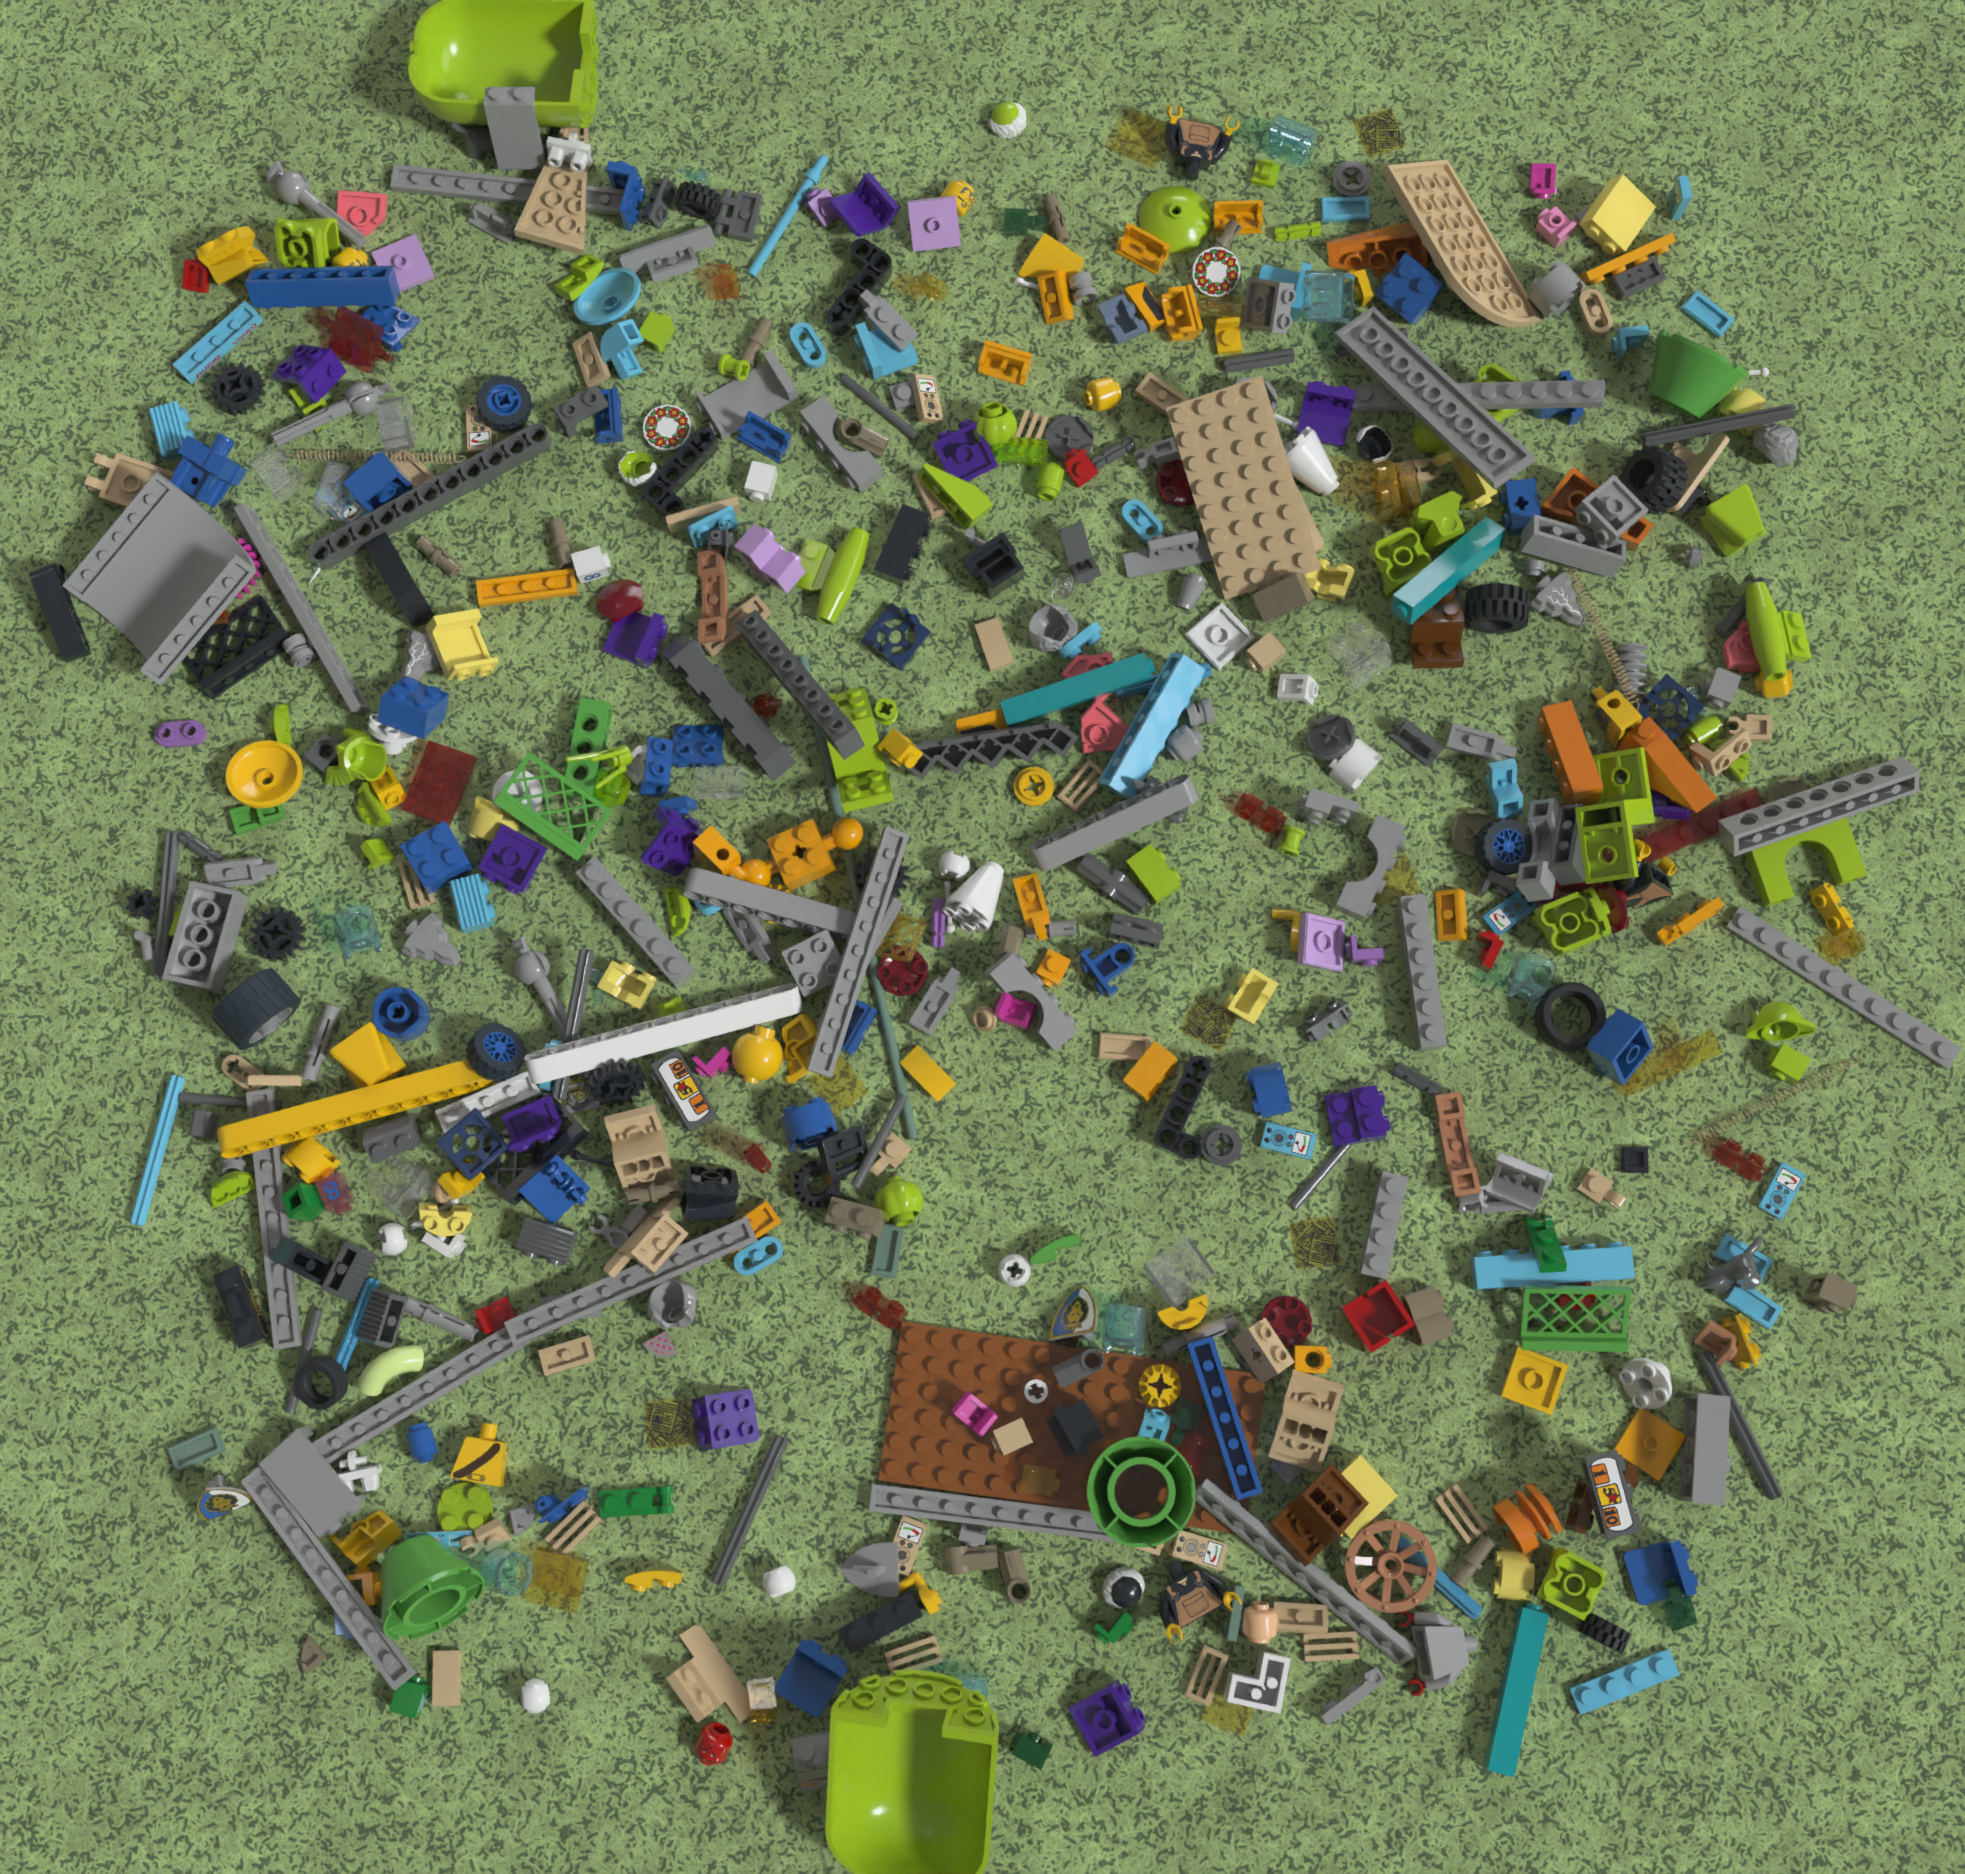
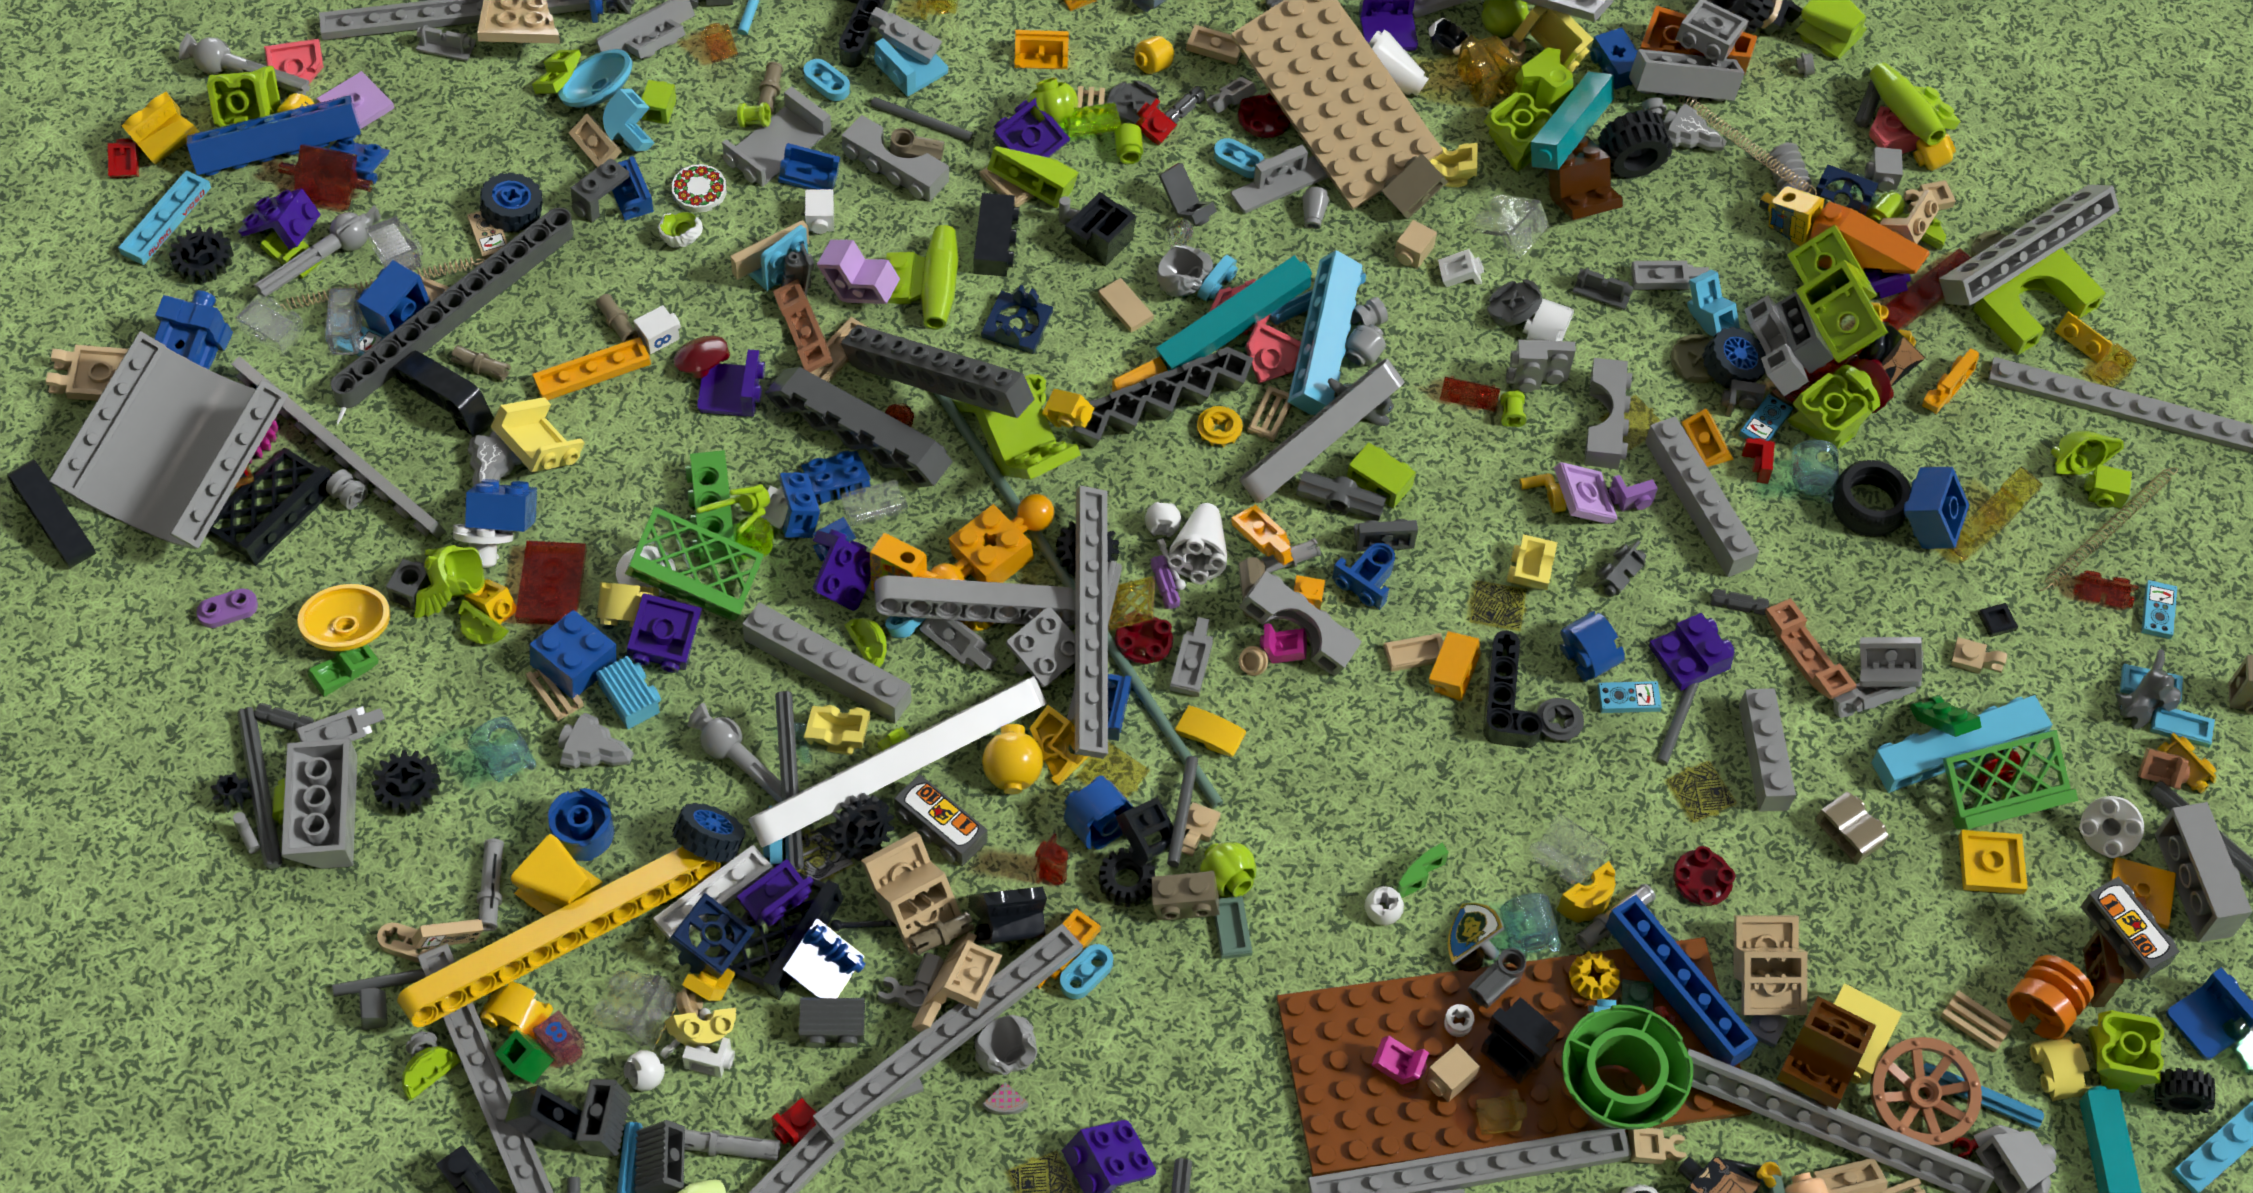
camera: 25 degrees left, 20 degrees down
(157, 1150) = (321, 1056): medium azure axle -> none
(170, 428) = (133, 308): medium azure brick -> none
(255, 1008) = (407, 856): black wheel -> none
(281, 725) = (345, 567): lime plate -> none
(376, 852) = (500, 668): lime tile -> none
(392, 1138) = (611, 957): dark grey brick -> none
(567, 1355) = (897, 1142): tan plate -> none
(677, 466) = (716, 238): black beam -> none
(719, 1063) = (971, 781): dark pink bracket -> none
(871, 1299) = (1259, 990): clear red hinge -> none
(902, 395) = (945, 103): light grey plate -> none
(926, 398) = (970, 99): tan tile -> none
(1199, 1549) = (1707, 1140): tan tile -> none
(1219, 636) = (1362, 241): white tile -> none
(1263, 1350) = (1698, 921): tan brick -> none
(1300, 1364) = (1752, 894): light orange brick -> none
(1376, 1316) = (1802, 839): red piece -> none
(1472, 1561) = (2011, 1064): dark tan pin -> none
(1570, 754) = (1762, 256): orange wedge -> none

